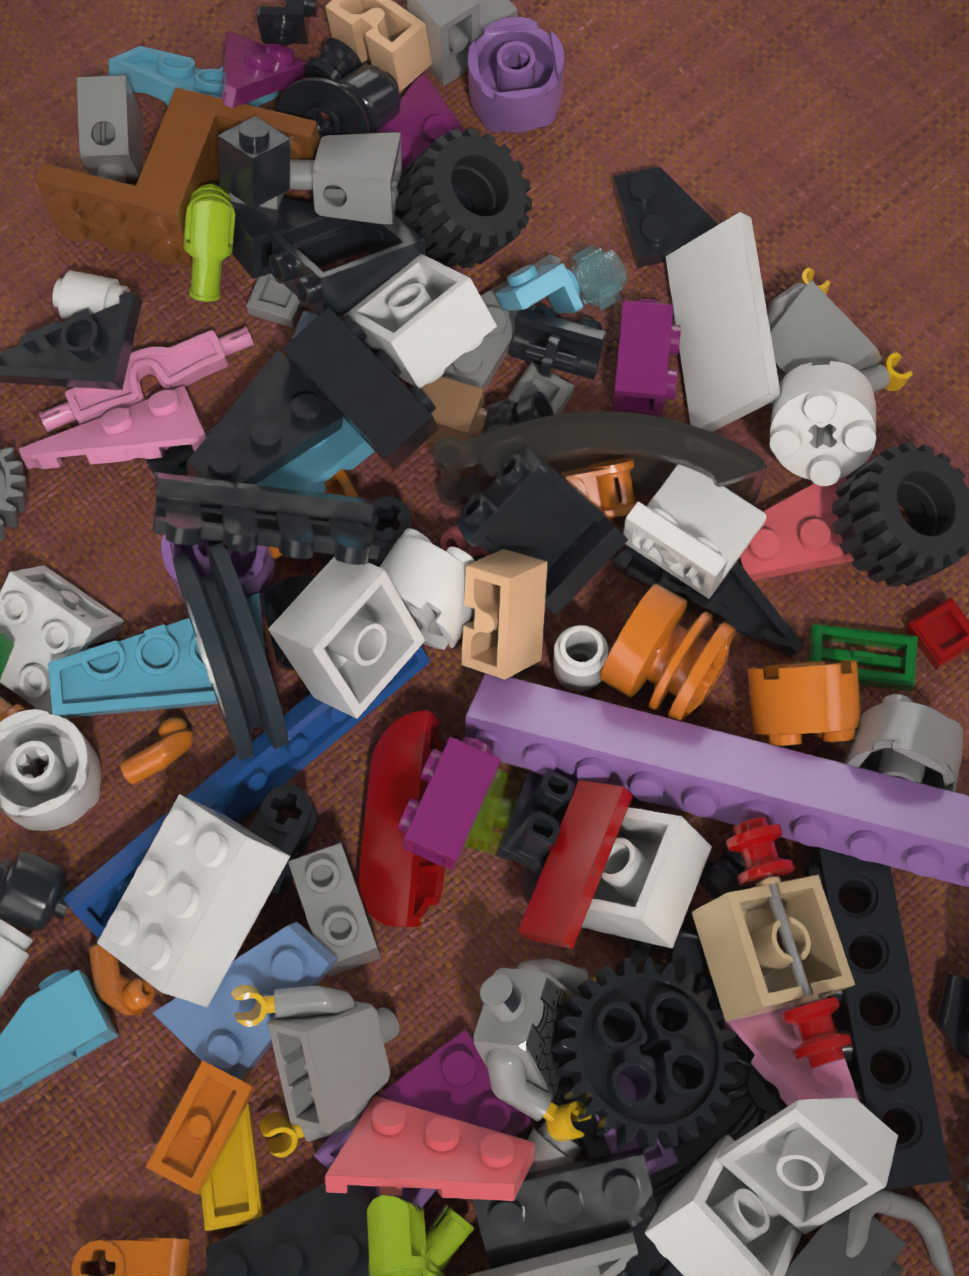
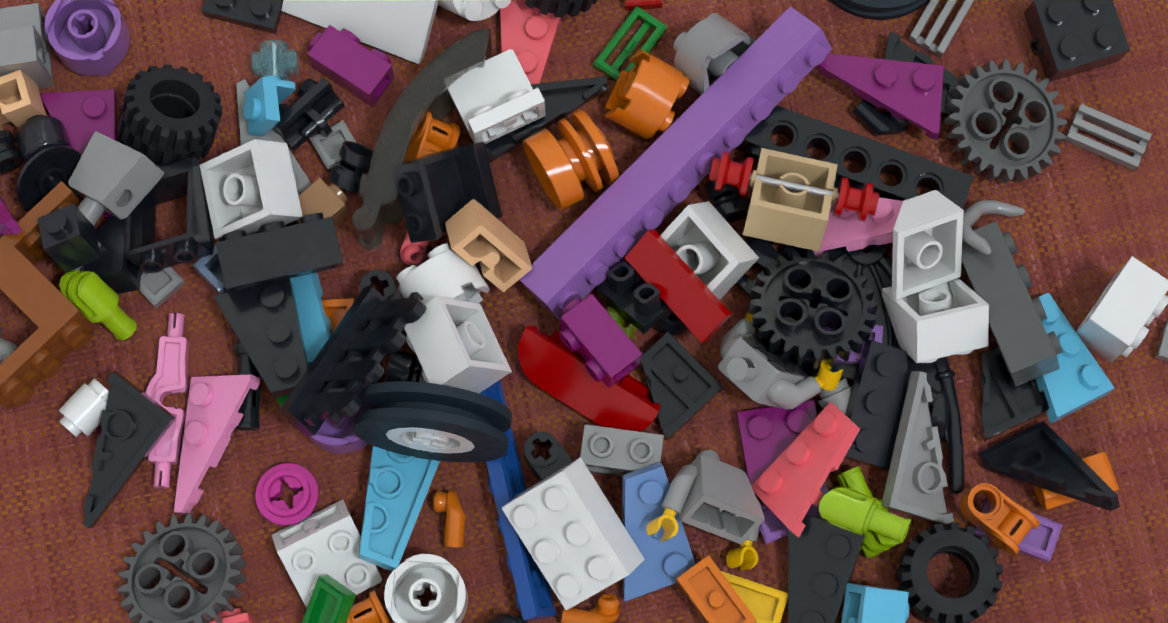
camera: 65 degrees left, 5 degrees up
(96, 535) = (271, 486): none -> dark pink gear
(461, 933) = (676, 383): none -> black wing
(579, 644) = (540, 205): white brick -> none

